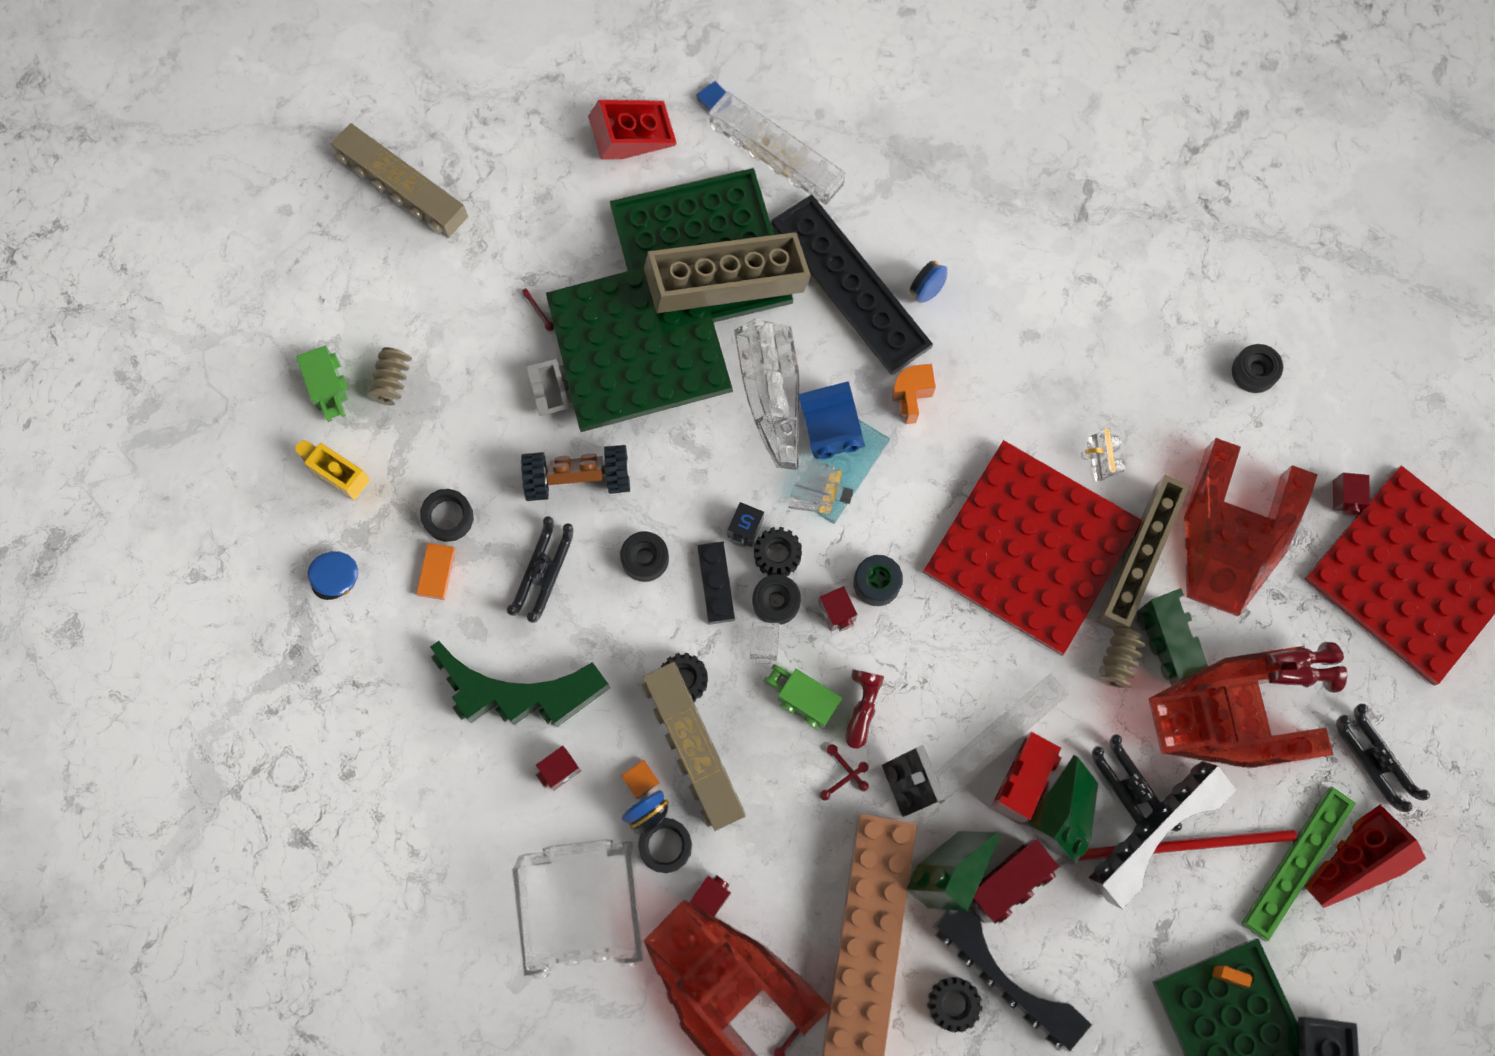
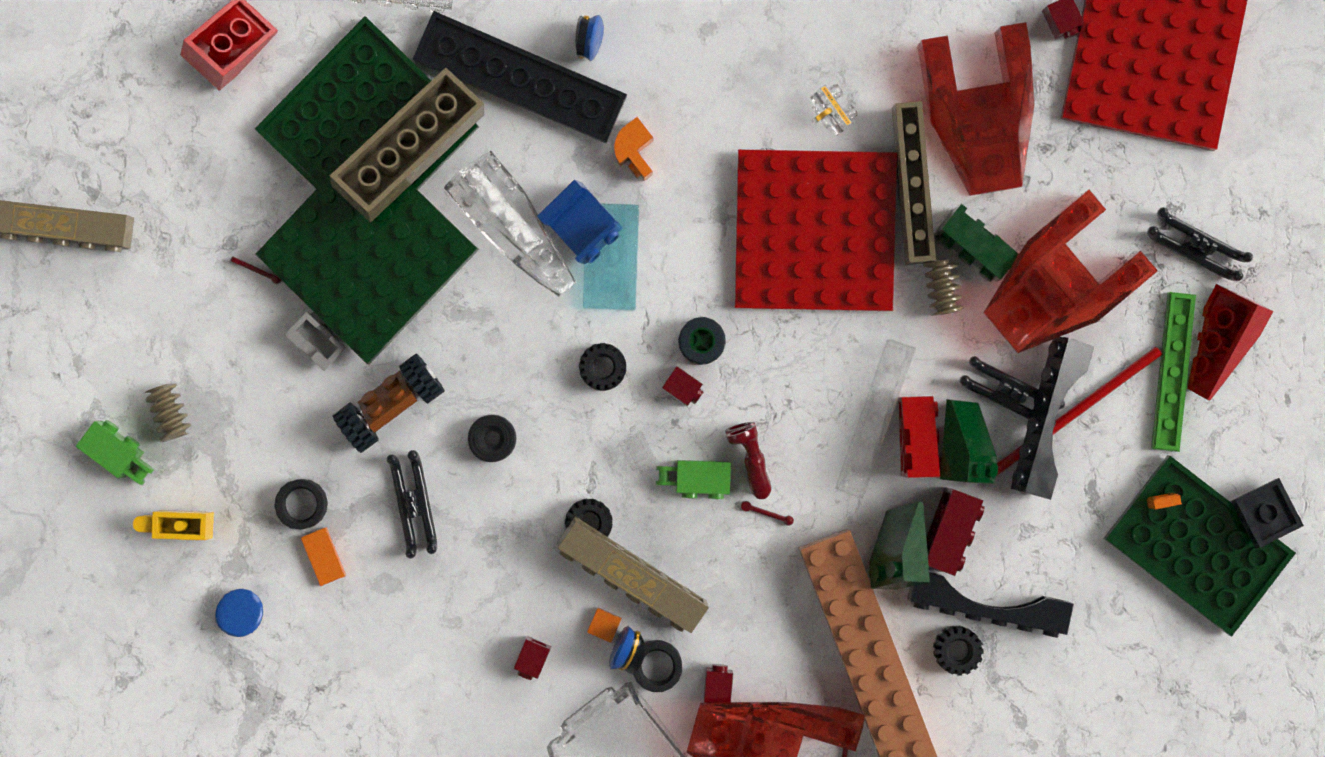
camera: 35 degrees left, 15 degrees up
(480, 694) = (429, 635): dark green arch -> none
(716, 583) = (565, 423): black plate -> none
(745, 525) = (561, 360): black brick -> none
(776, 584) = (612, 402): black tyre -> none
(817, 487) = (604, 290): clear torso -> none
(862, 768) = (780, 507): dark red hinge -> none
(913, 781) = (827, 496): black hinge -> none
(1297, 669) = (1090, 210): dark red piece -> none

